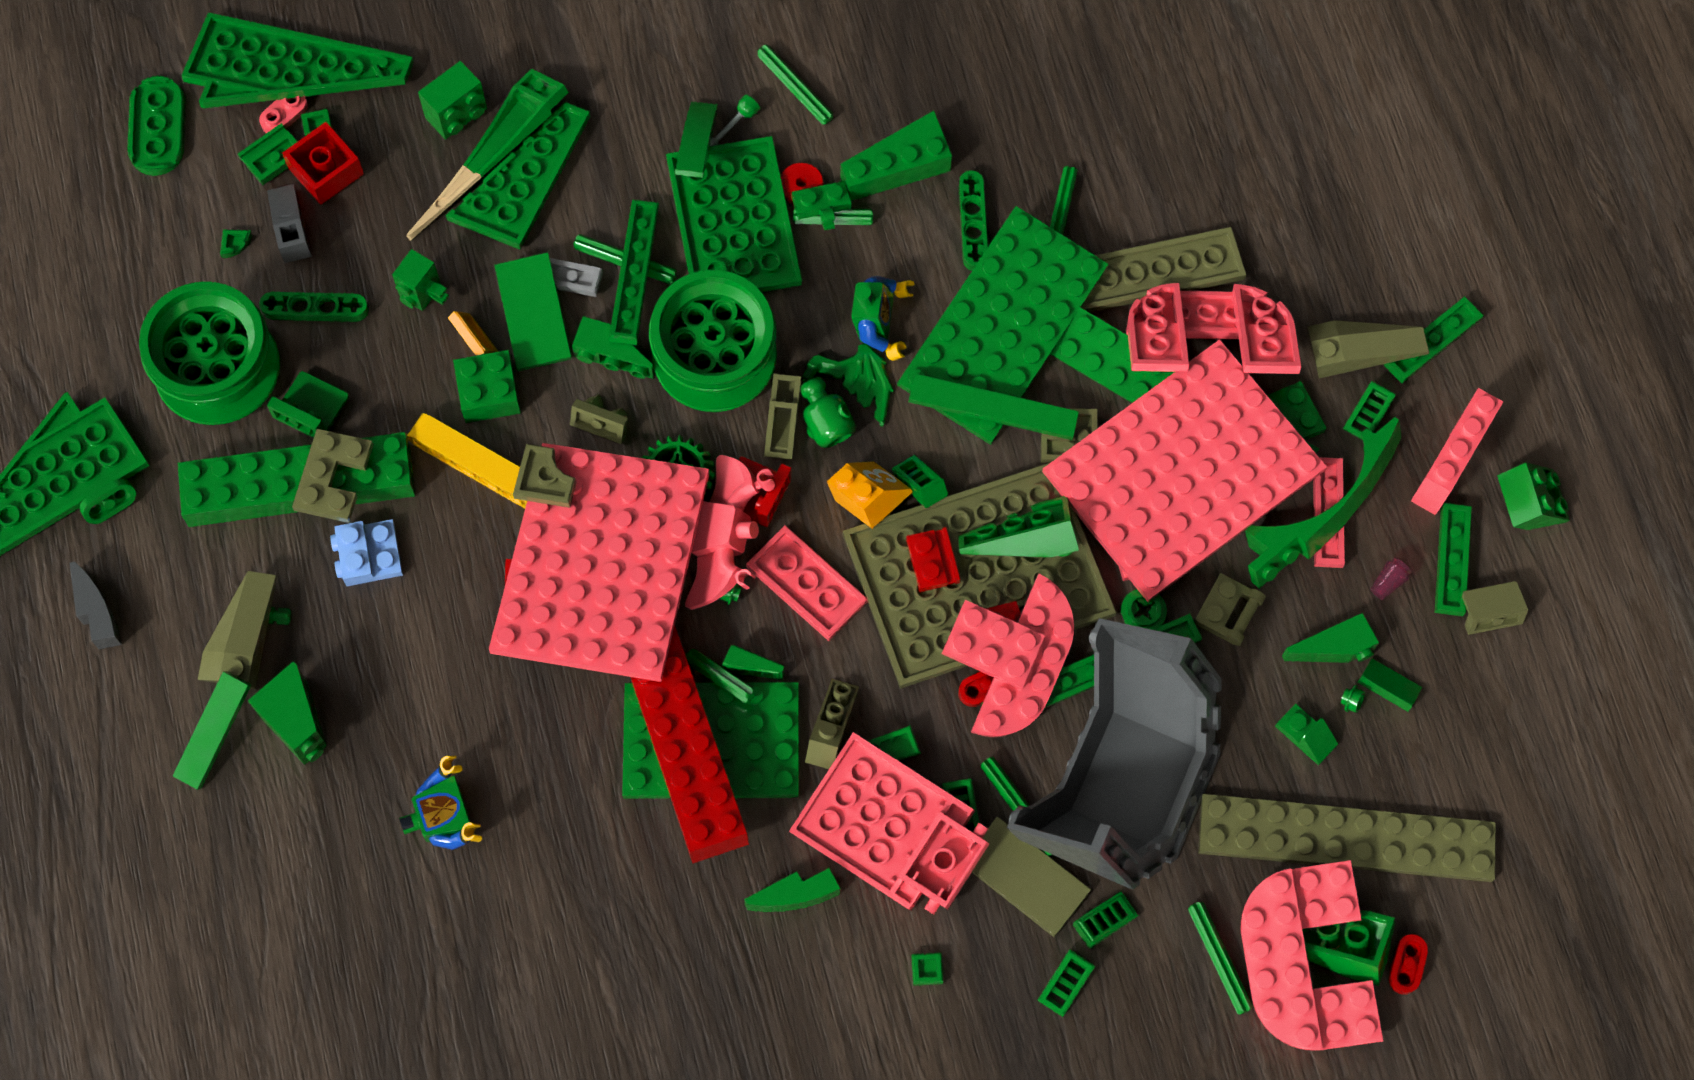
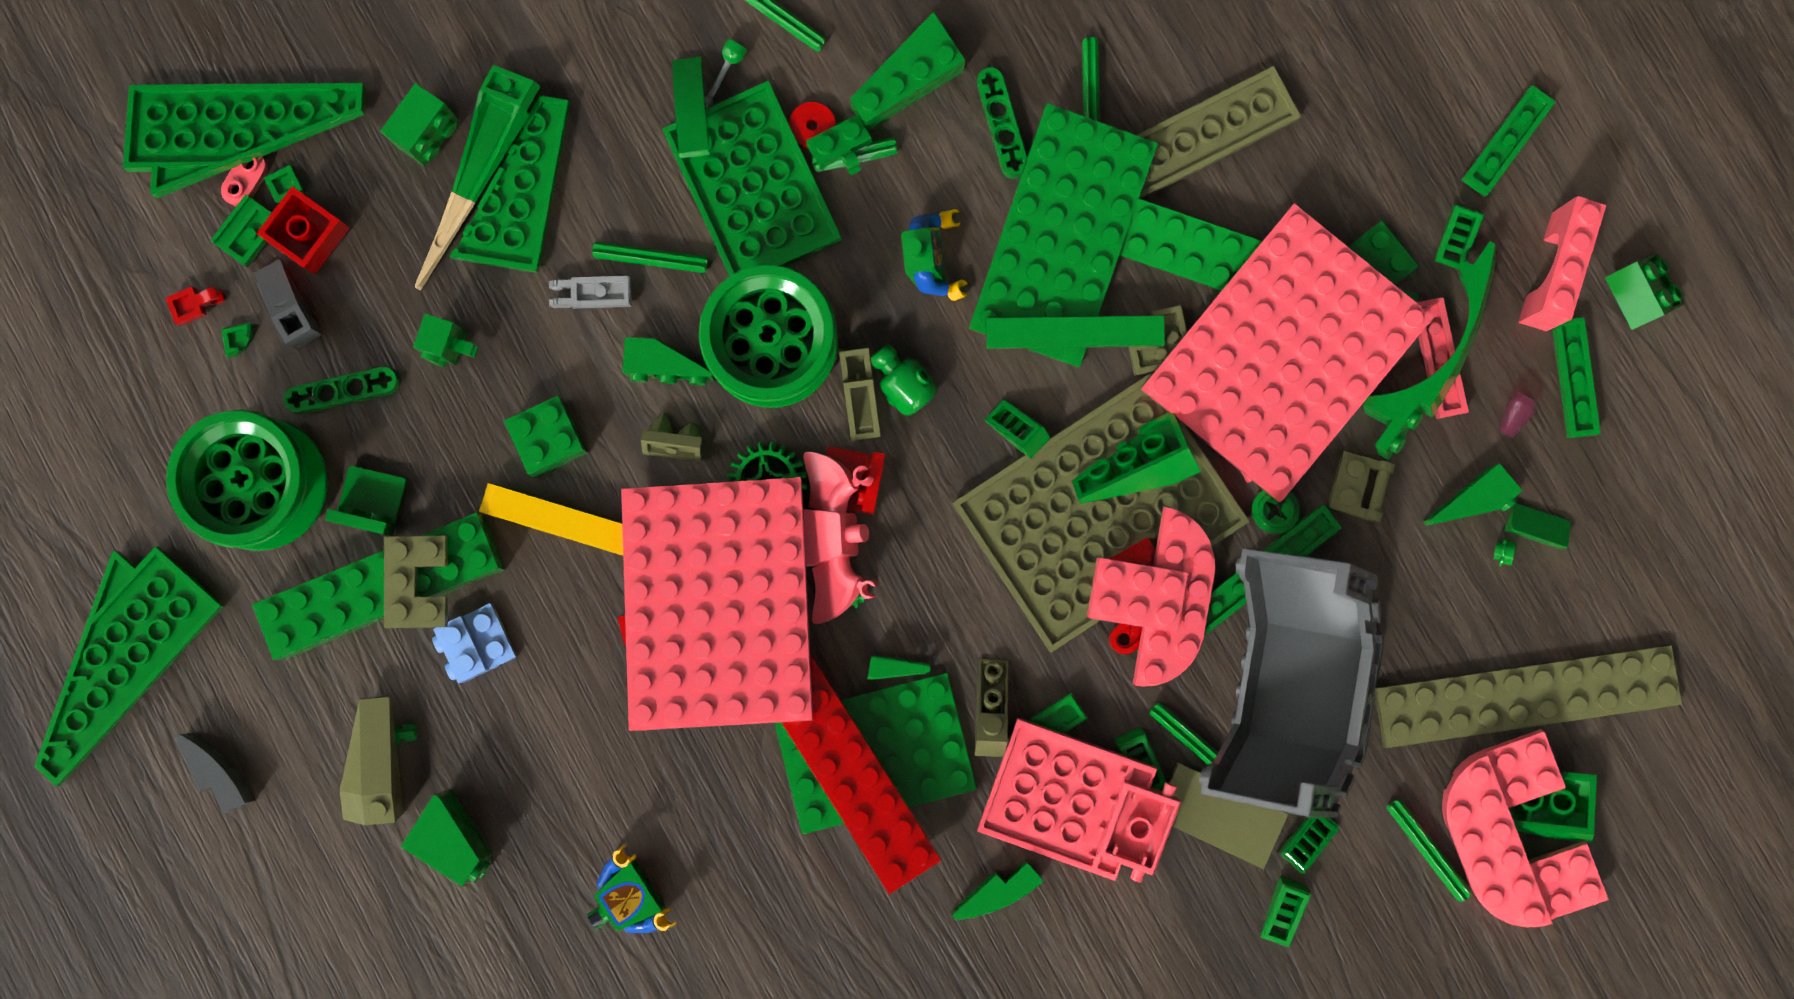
camera: 10 degrees left, 15 degrees up
(107, 501) = (193, 657): green plate -> none
(156, 126) = (114, 227): green tile -> none
(202, 202) = (189, 304): none -> red plate
(212, 730) = (373, 875): tile -> none
(472, 333) = (516, 383): light orange tile -> none
(533, 311) = (571, 341): green tile -> none
(542, 480) = (631, 533): olive tile -> none
(634, 272) = (664, 273): green tile -> none
(720, 675) = (867, 688): green axle -> none
(806, 582) = (928, 564): coral tile -> none
(863, 375) = (930, 326): green animal -> none
(867, 491) = (968, 453): light orange slope -> none
(927, 969) = (1145, 932): green tile -> none
(932, 559) = (1052, 512): red plate -> none
(1168, 316) = (1238, 181): coral plate -> none
(1307, 734) = (1466, 599): green slope -> none
(1359, 345) = (1430, 167): olive wedge -> none
(1407, 965) = (1617, 811): red plate -> none
(1494, 607) = (1628, 419): olive panel -> none

